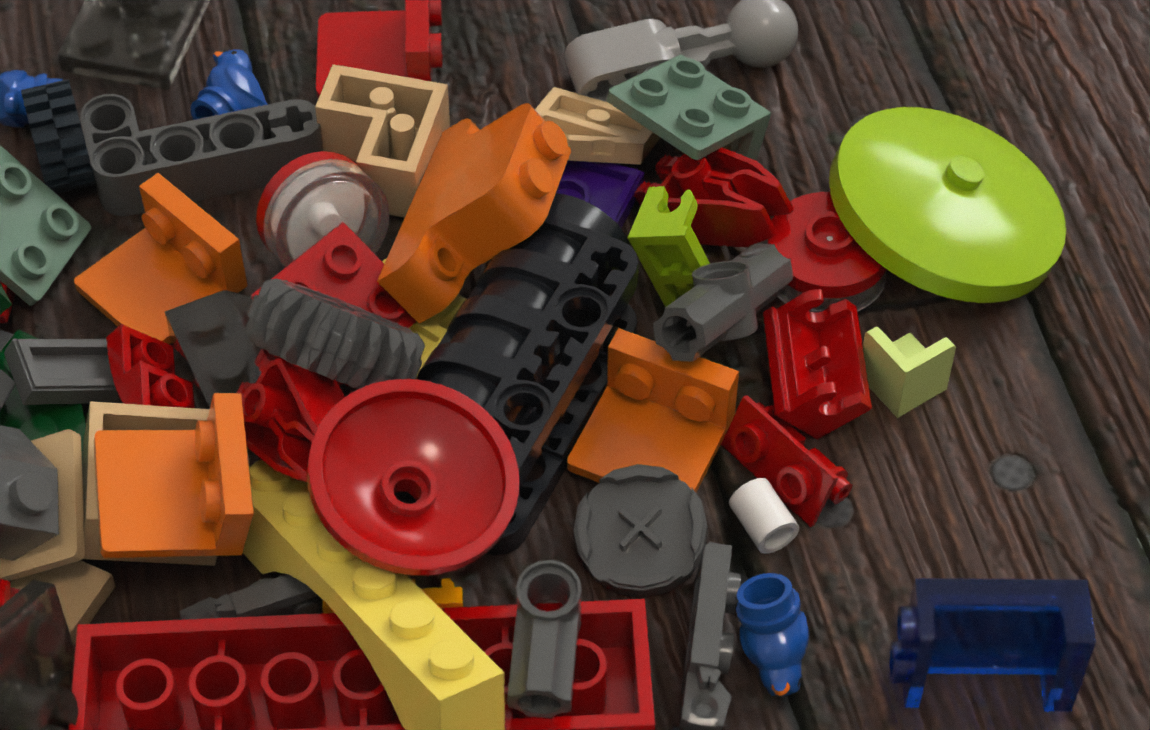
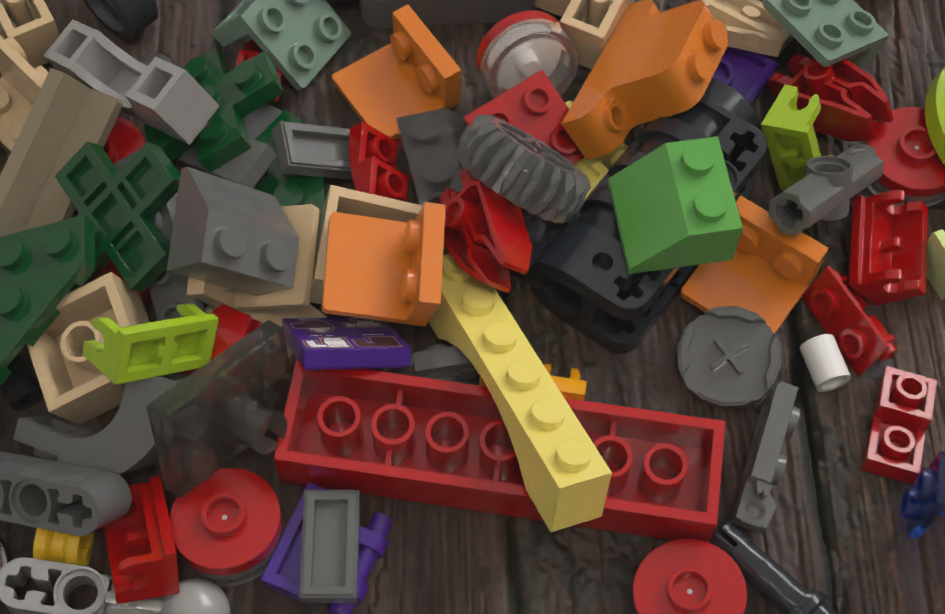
camera: 10 degrees right, 10 degrees up
(141, 596) = (345, 343): none -> dark purple tile
(420, 443) = (587, 276): red dish -> none
(535, 346) = (676, 207): none -> bright green slope
(545, 641) = (645, 446): dark grey piece -> none
(773, 631) = (817, 460): blue animal -> none
(869, 573) = (899, 425): none -> red slope

